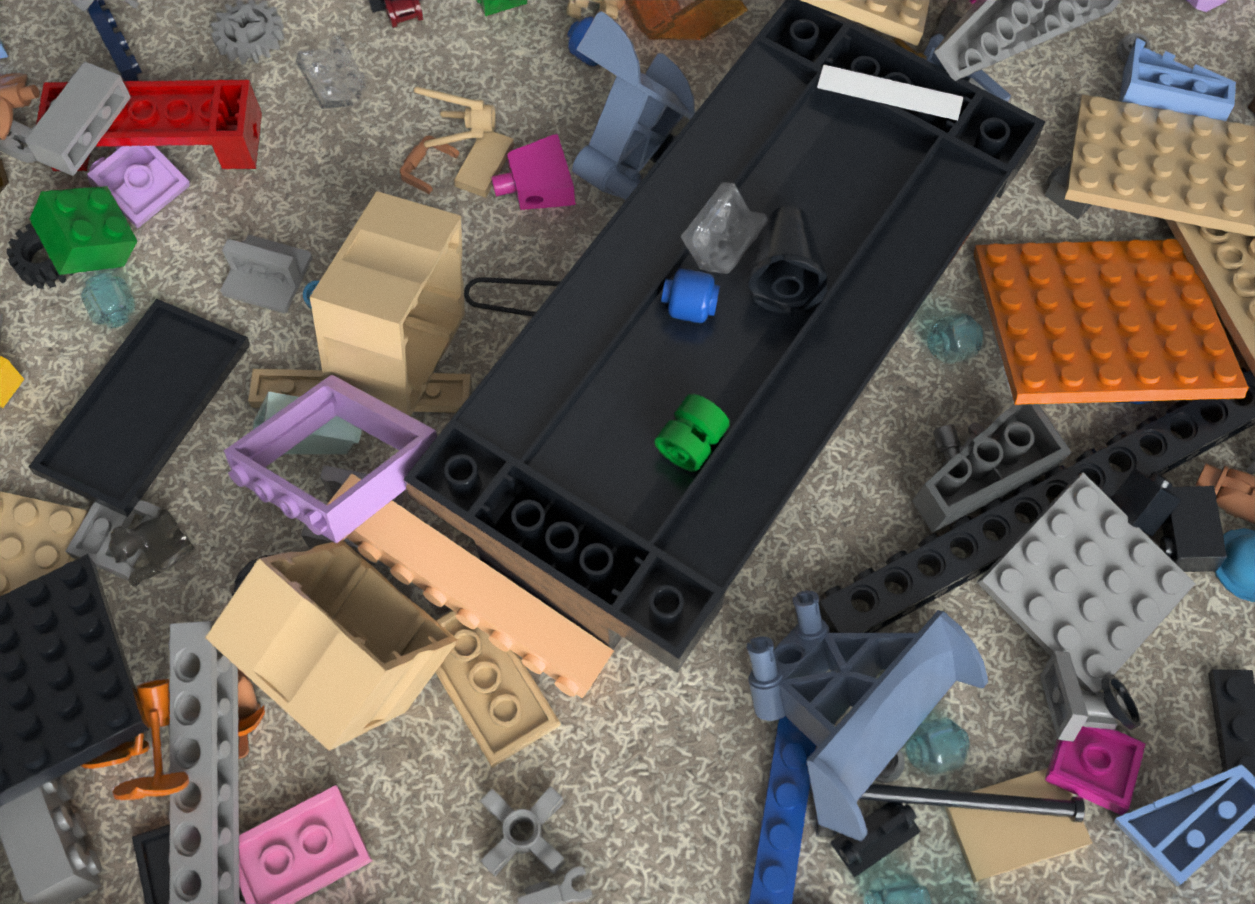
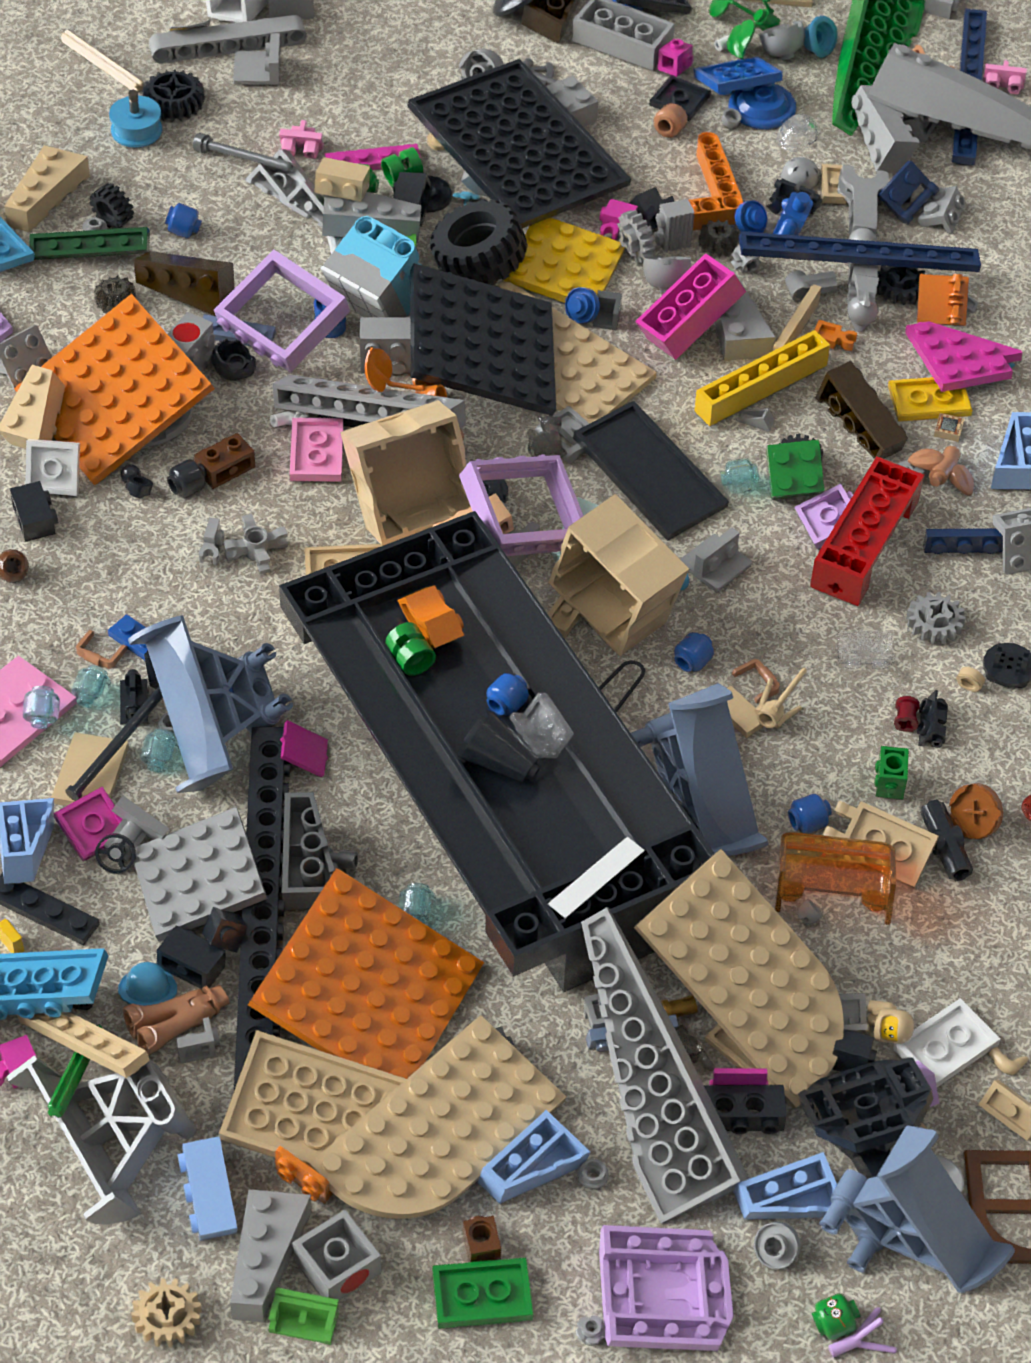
camera: 115 degrees right, 15 degrees down
(78, 118) = (871, 474): light grey brick -> none
(622, 437) = (432, 616): none -> orange brick
(827, 569) = (304, 748): none -> dark pink piece

